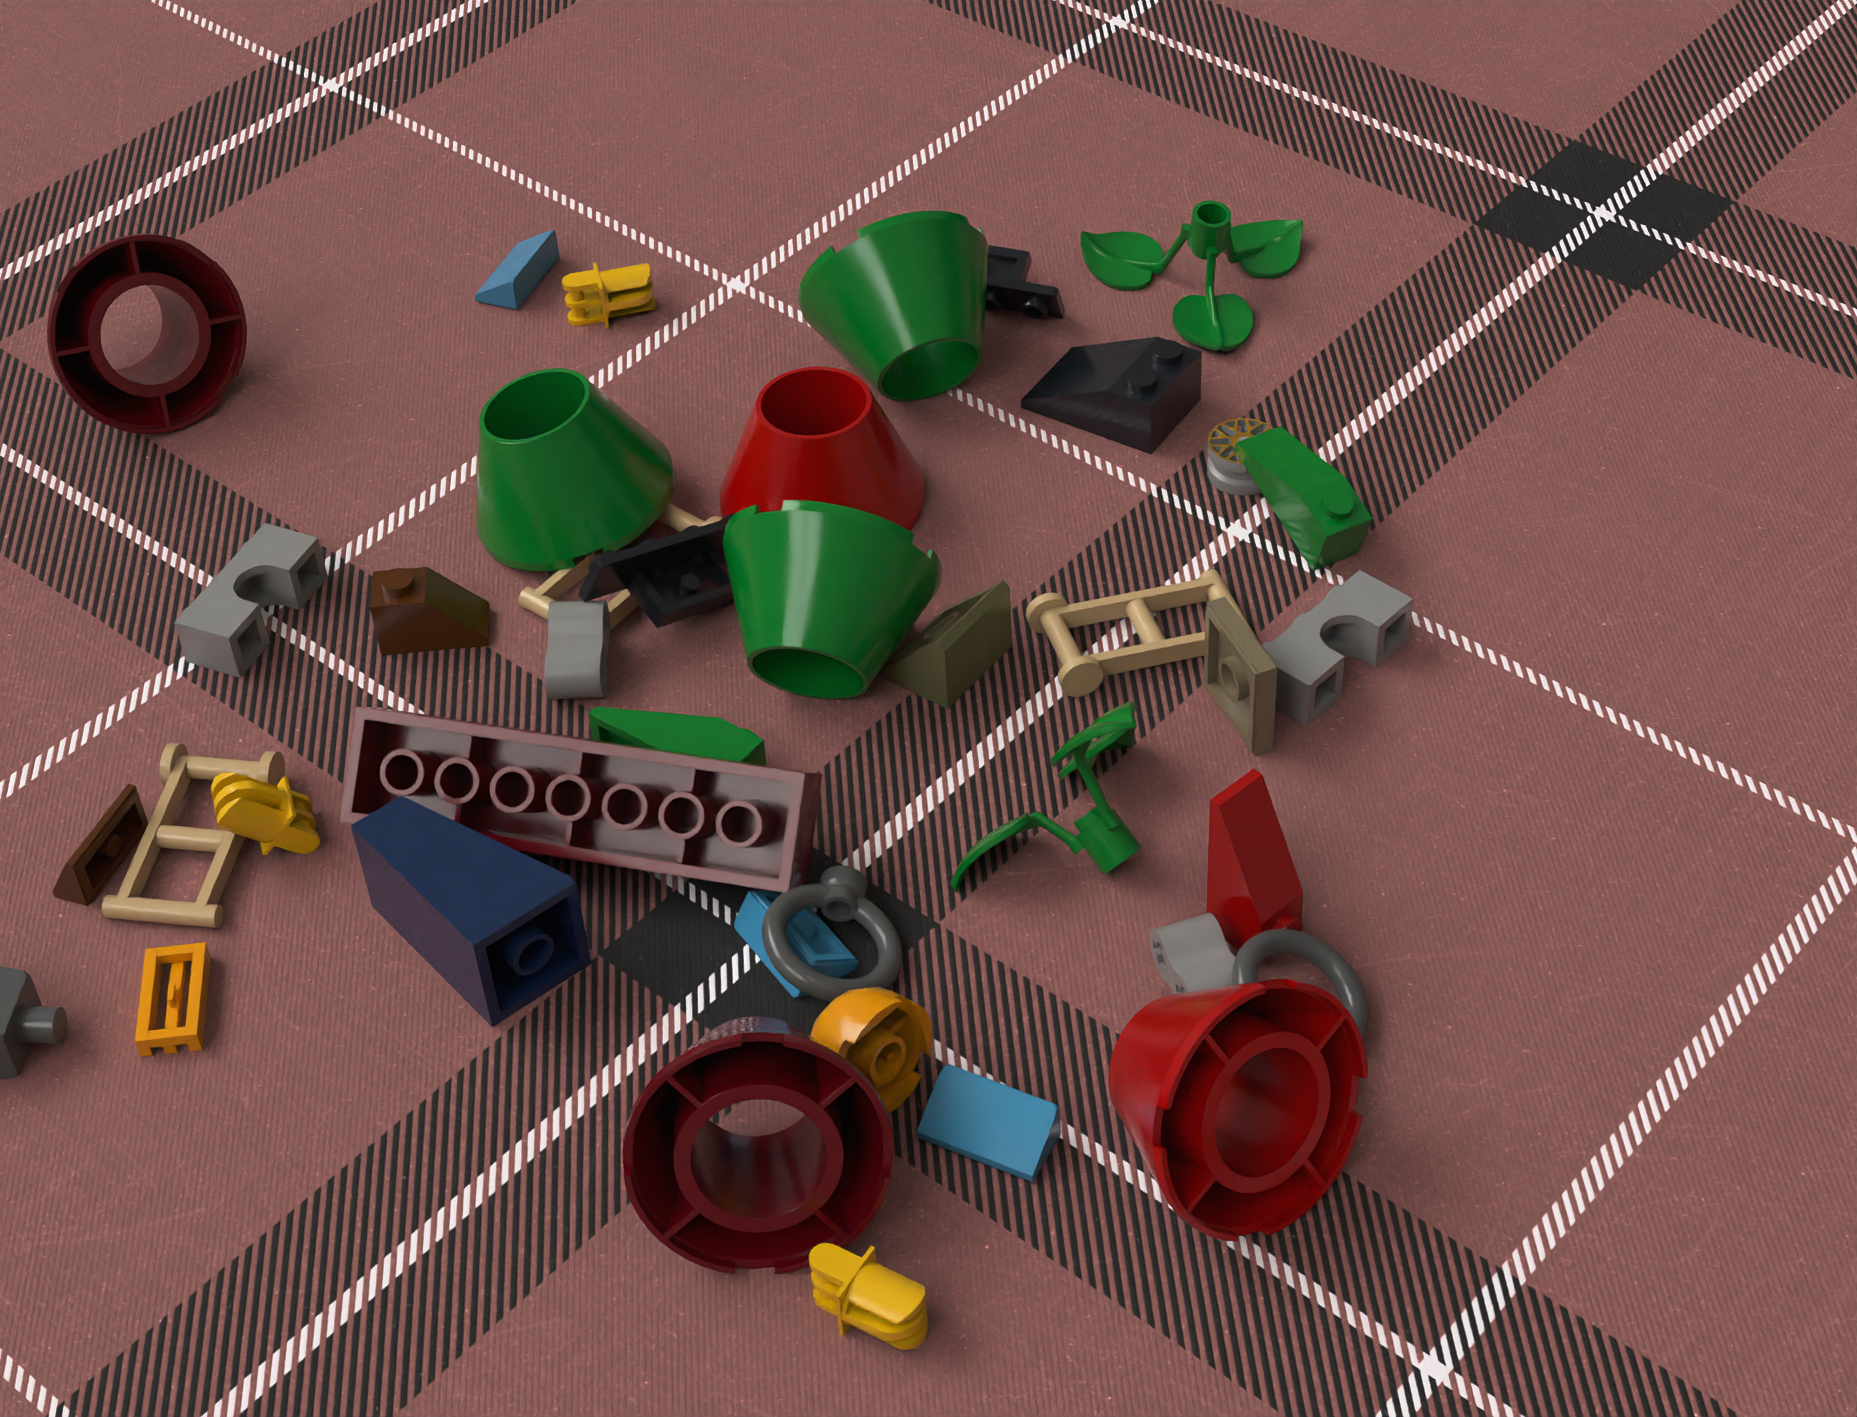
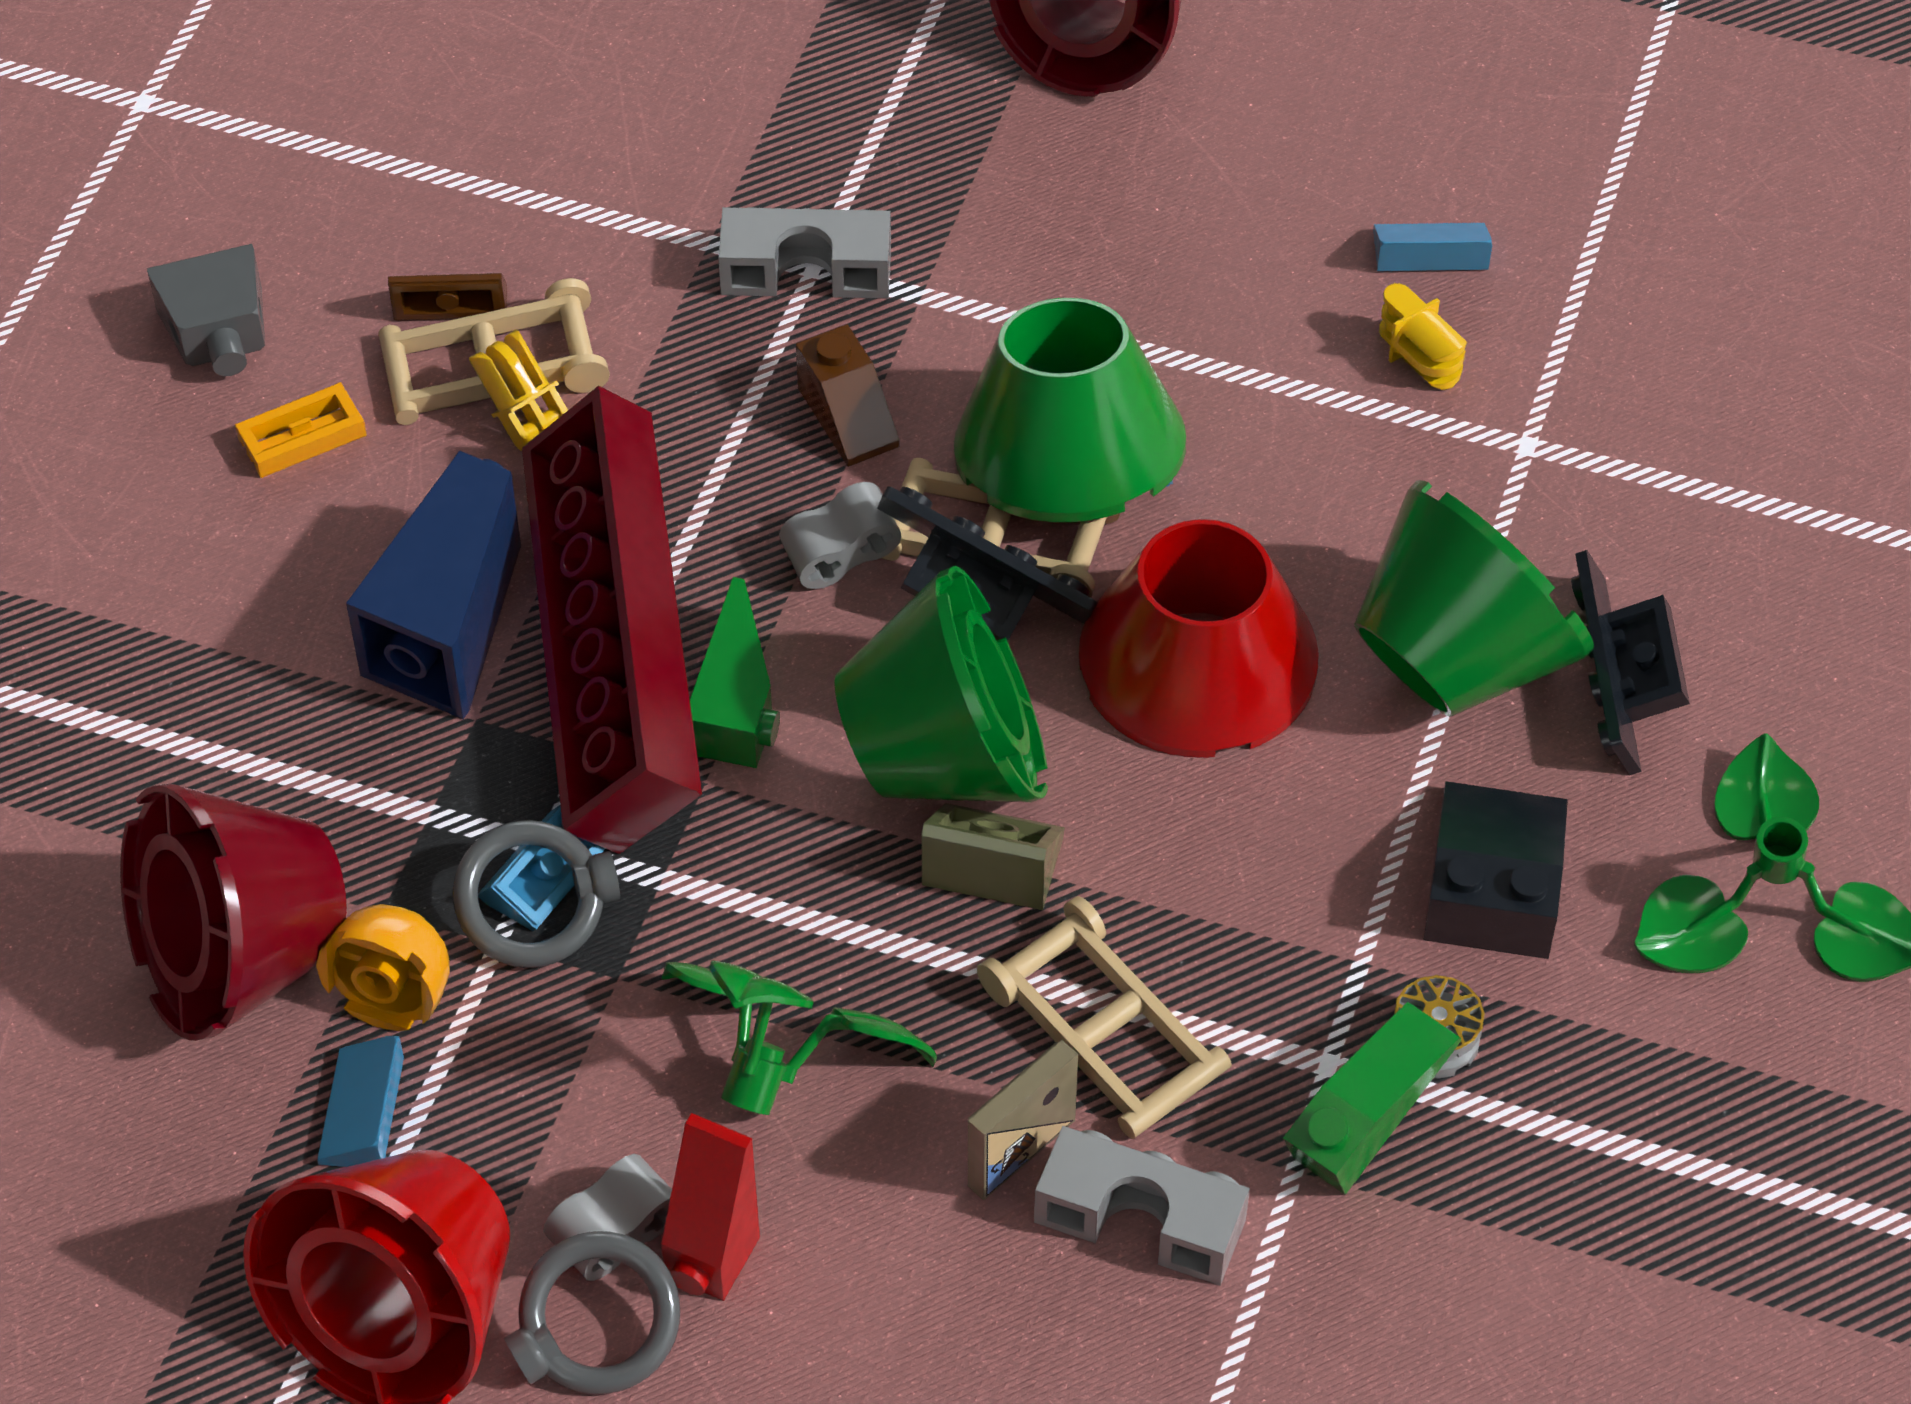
camera: 65 degrees right, 10 degrees up
(868, 1296) = (123, 1073): yellow arm -> none

